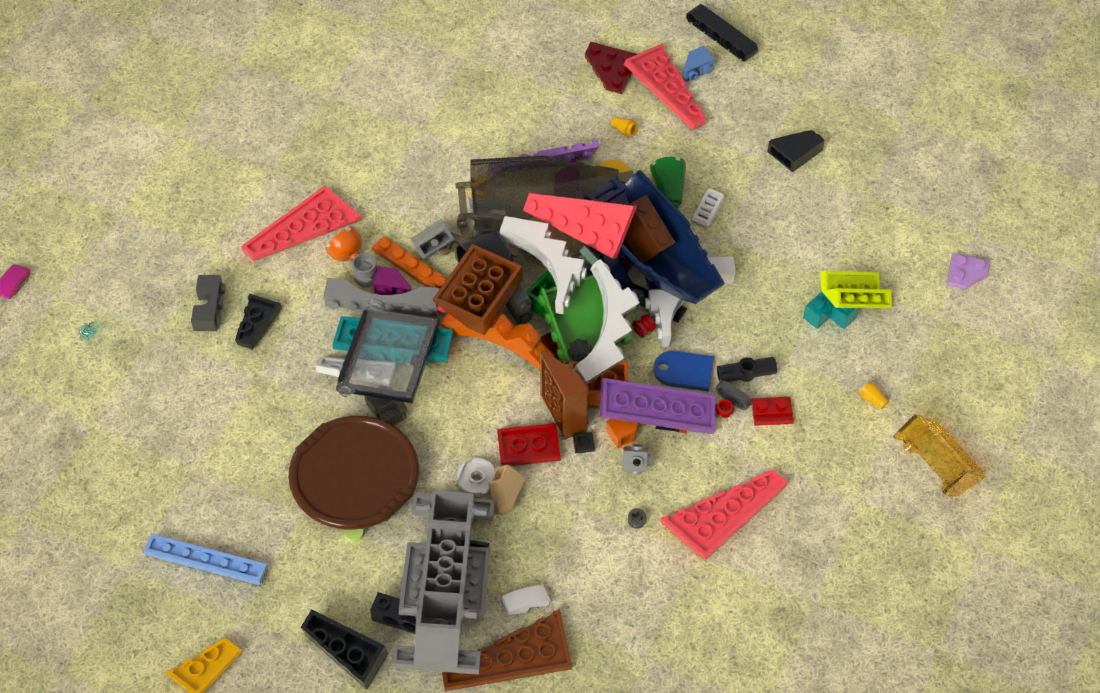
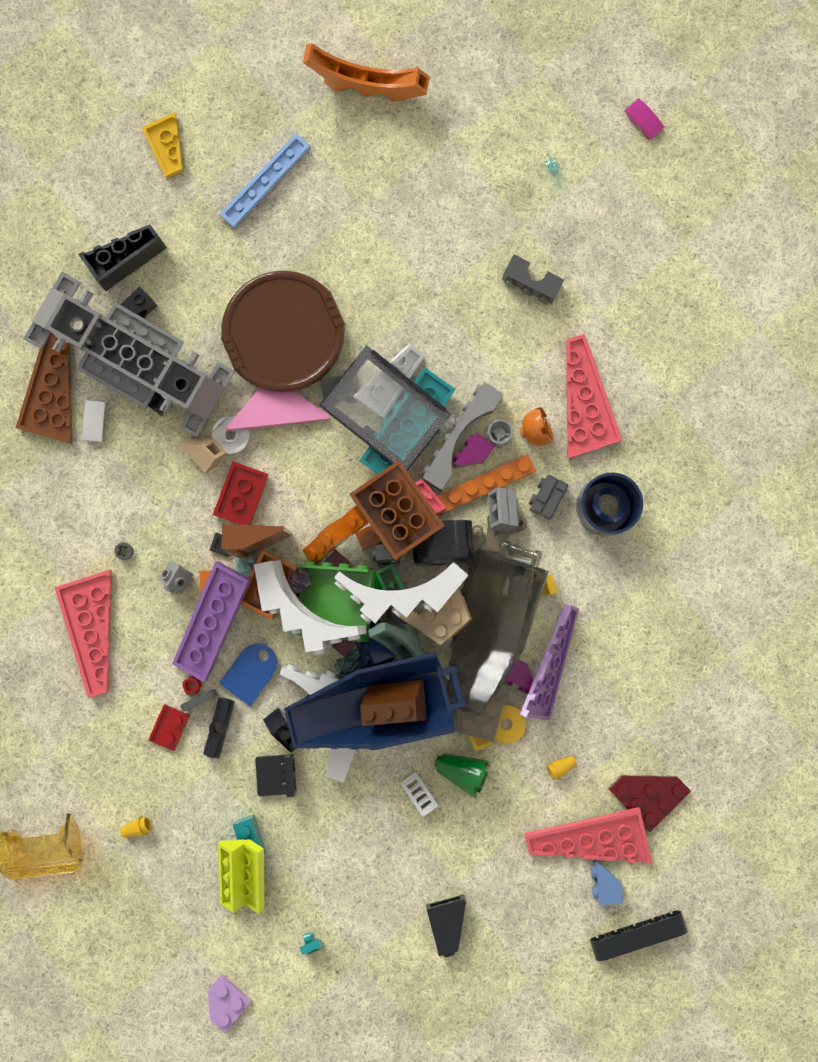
camera: 115 degrees right, 30 degrees up
(59, 487) = (366, 80): none -> orange arch
(257, 318) = (492, 316): black wing -> none
(387, 154) = (628, 498): none -> dark blue piece
(402, 217) = (548, 497): none -> dark grey brick
(434, 451) = (276, 409): none -> bright pink tile
(589, 221) = (416, 648): coral wing -> none
(594, 419) = (247, 562): none -> clear light blue plate
(643, 325) = (312, 660): red wheel -> none
(717, 321) = (278, 728): none -> black slope
(757, 309) = (276, 775): none -> black bracket
(877, 229) = (311, 945): none -> teal tile

